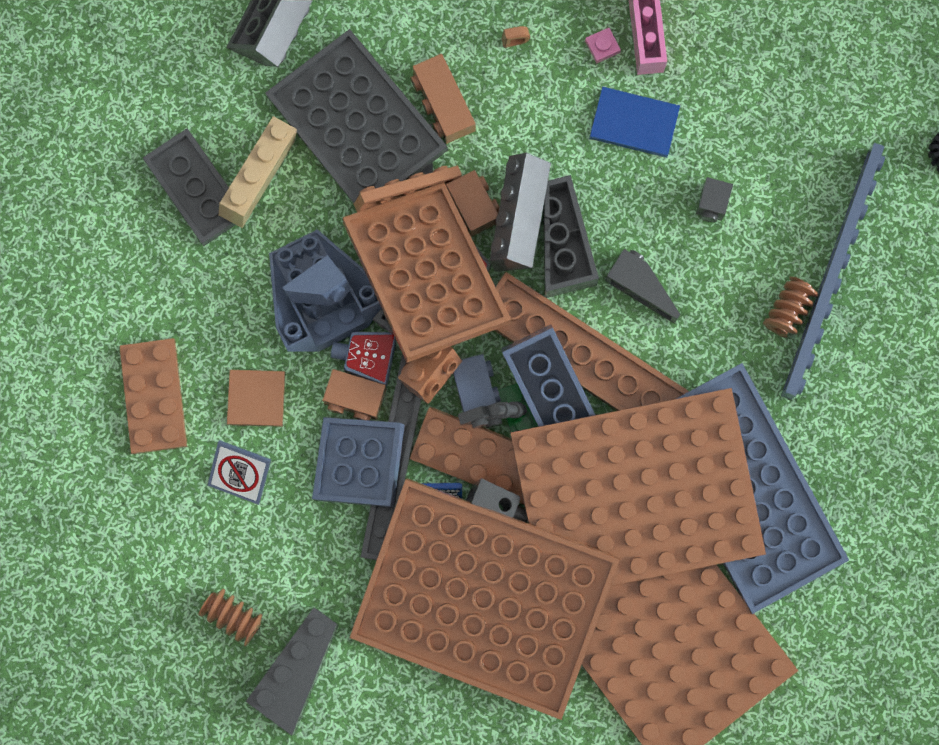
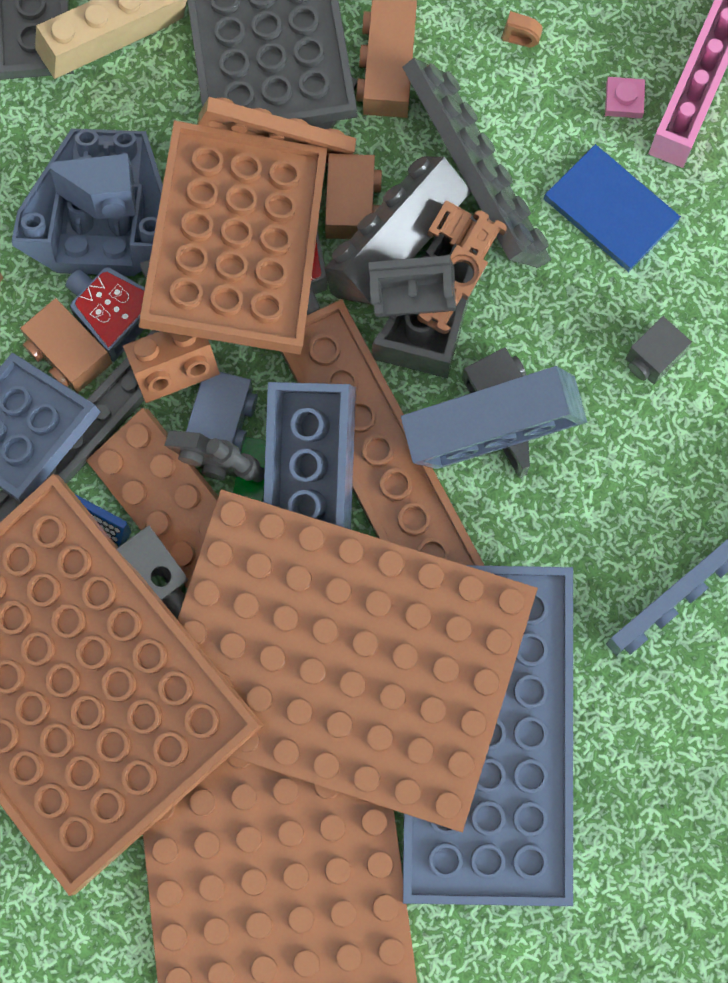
camera: 30 degrees right, 5 degrees down
(539, 140) = (475, 161): none -> dark grey plate
(555, 245) = (412, 286): none -> dark grey hinge
(574, 242) = (467, 236): none -> nougat piece
(648, 300) = (494, 418): none -> sand blue brick
(790, 306) = (680, 535): nougat piece -> none

